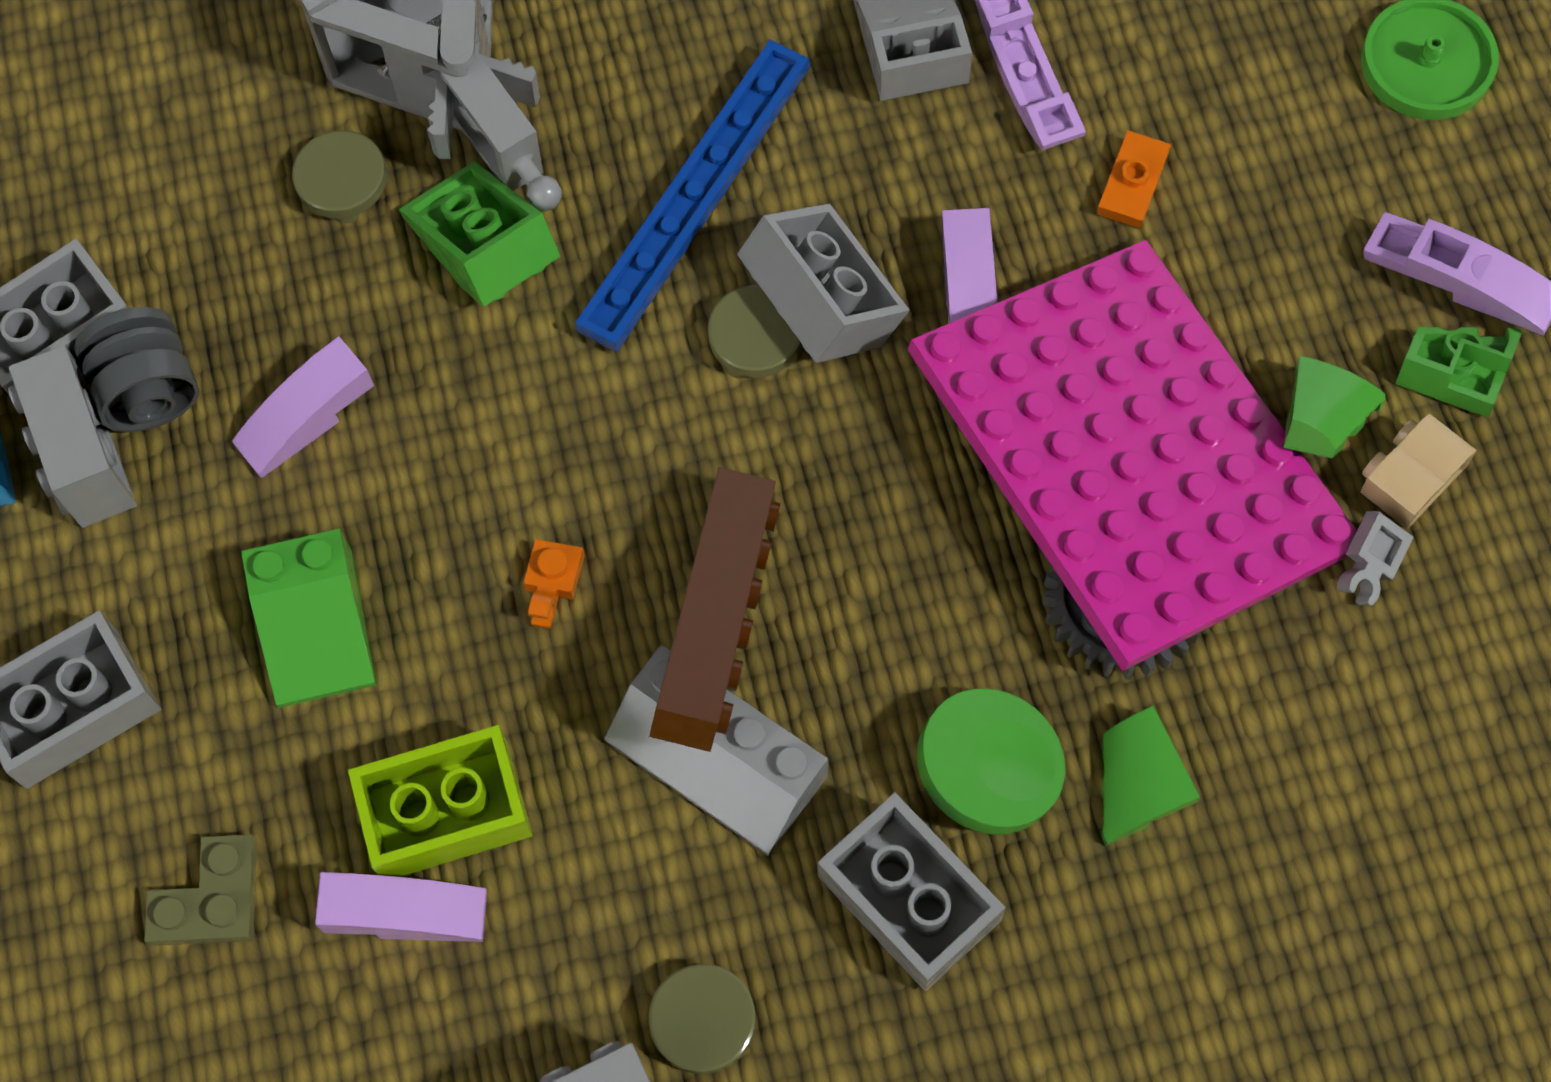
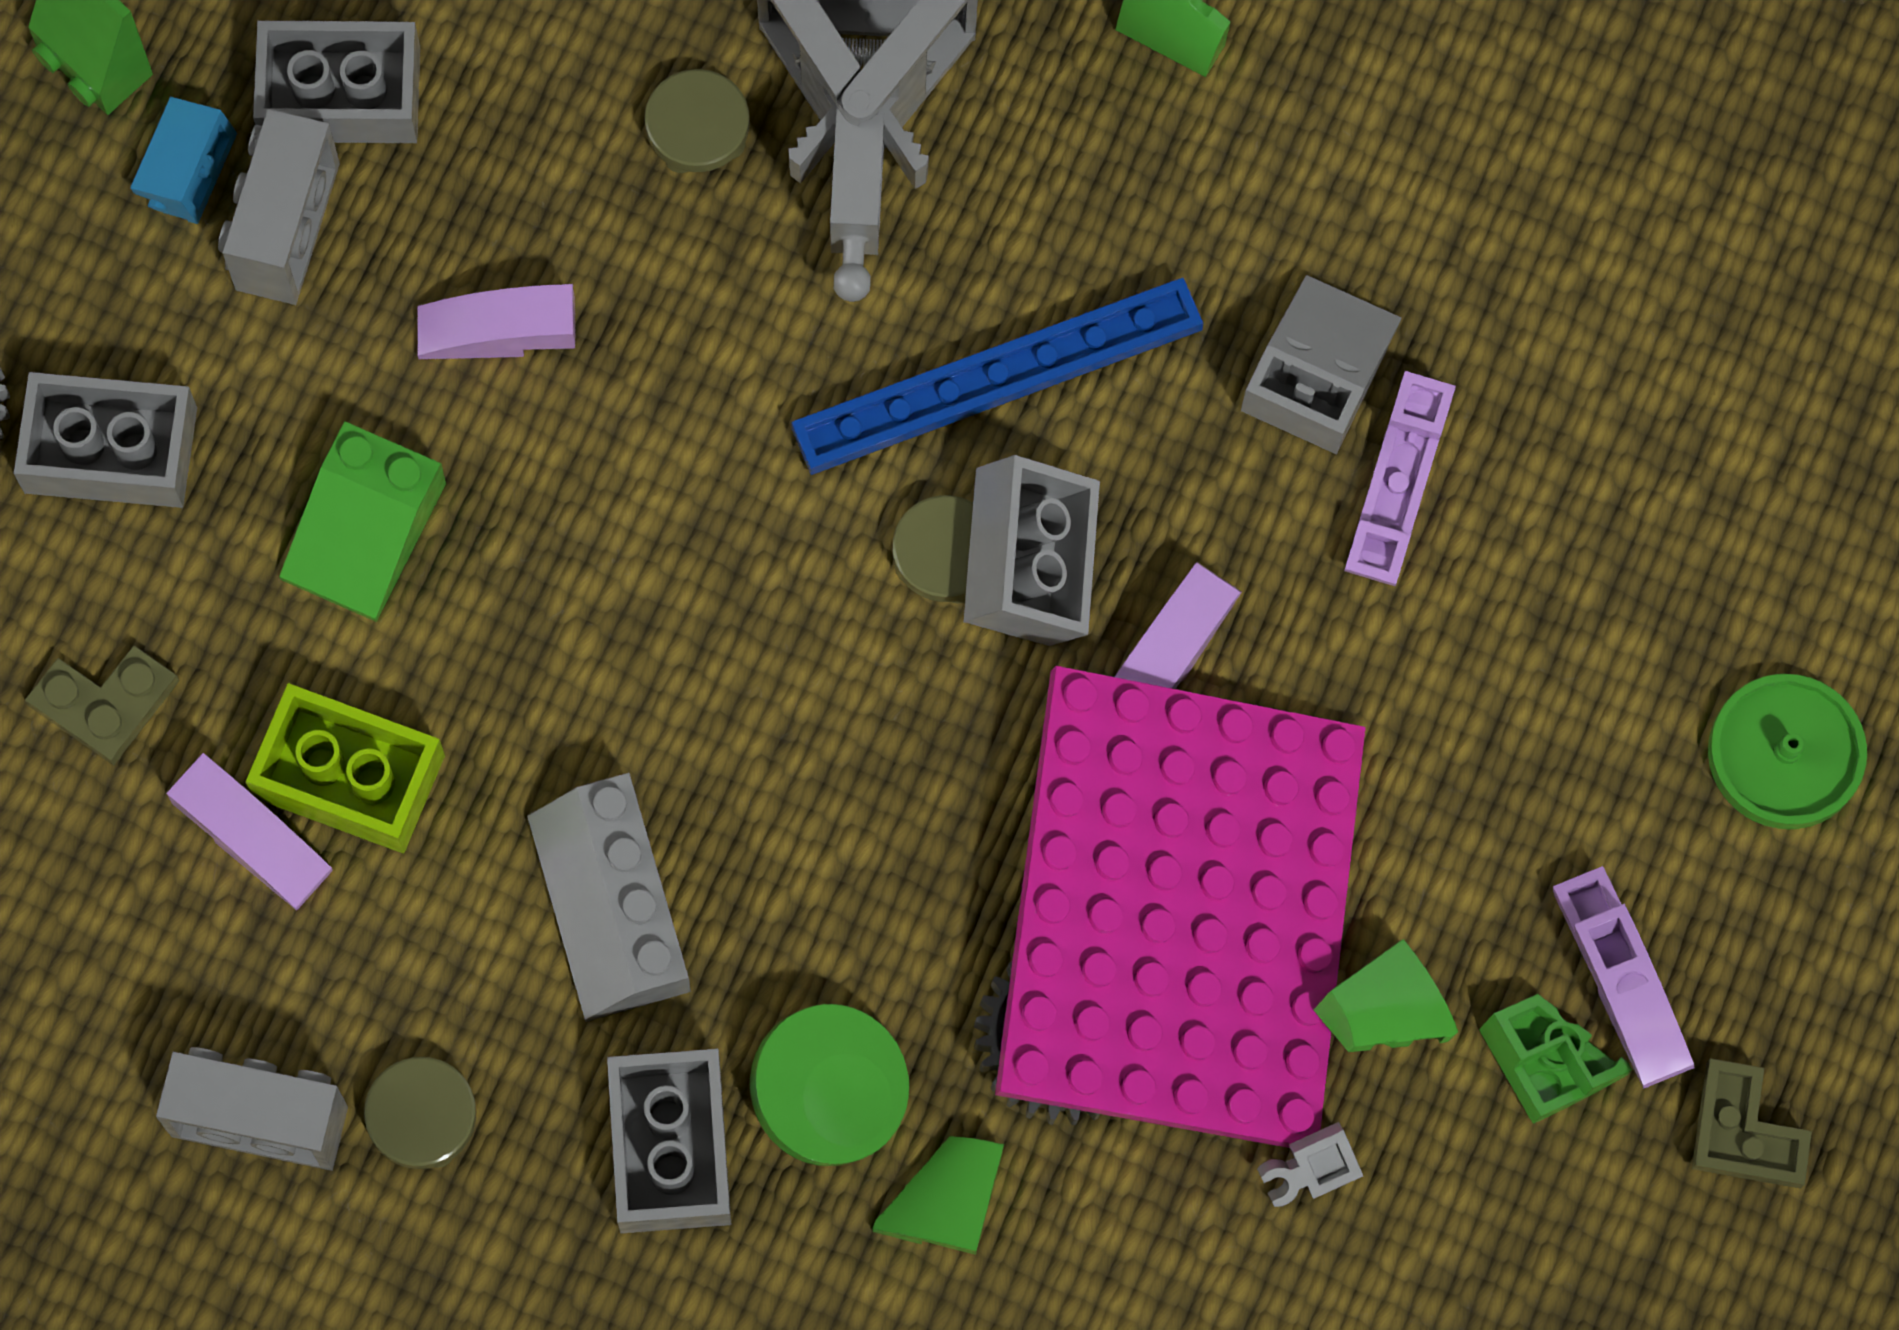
camera: 30 degrees right, 5 degrees up
(136, 369) = (379, 184): dark grey wheel -> none
(482, 232) = (777, 271): bright green slope -> none
(550, 575) = (595, 636): orange plate -> none
(714, 609) = (696, 775): reddish brown brick -> none
(1133, 179) = (1407, 661): orange plate -> none
(1416, 470) = (1419, 1120): tan brick -> none

